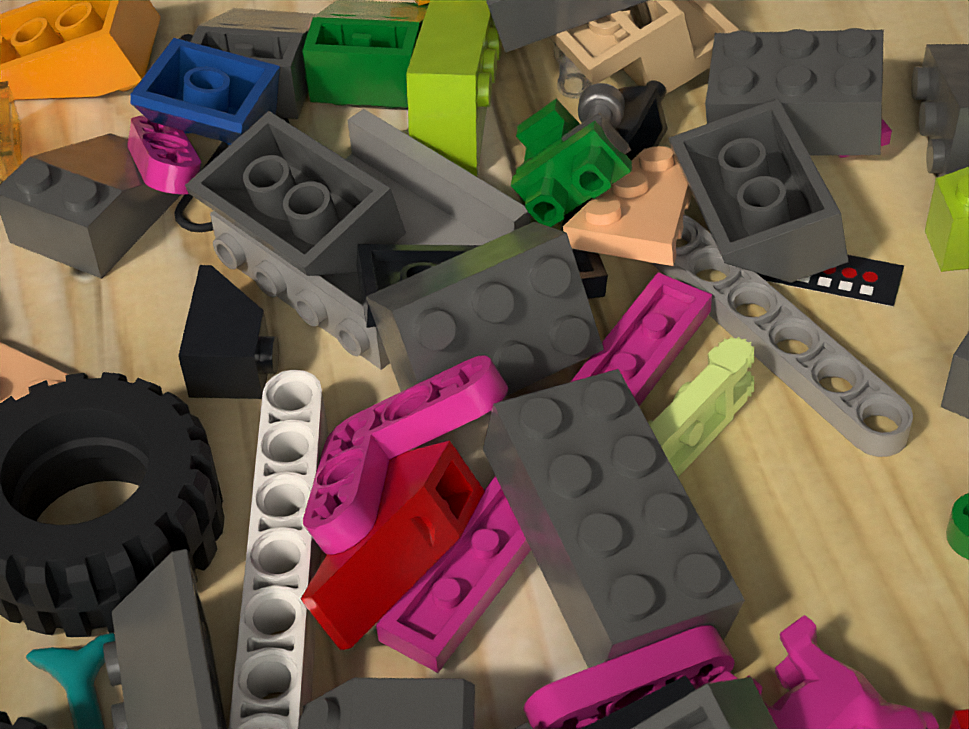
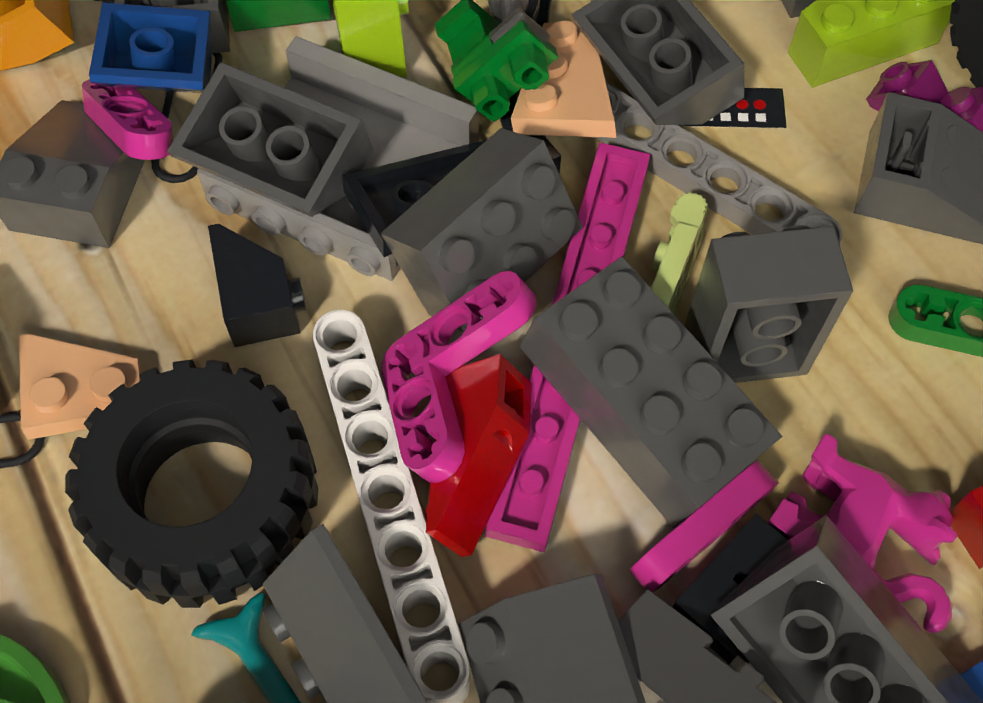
camera: 20 degrees left, 15 degrees up
(769, 454) = (769, 300): none -> dark grey brick

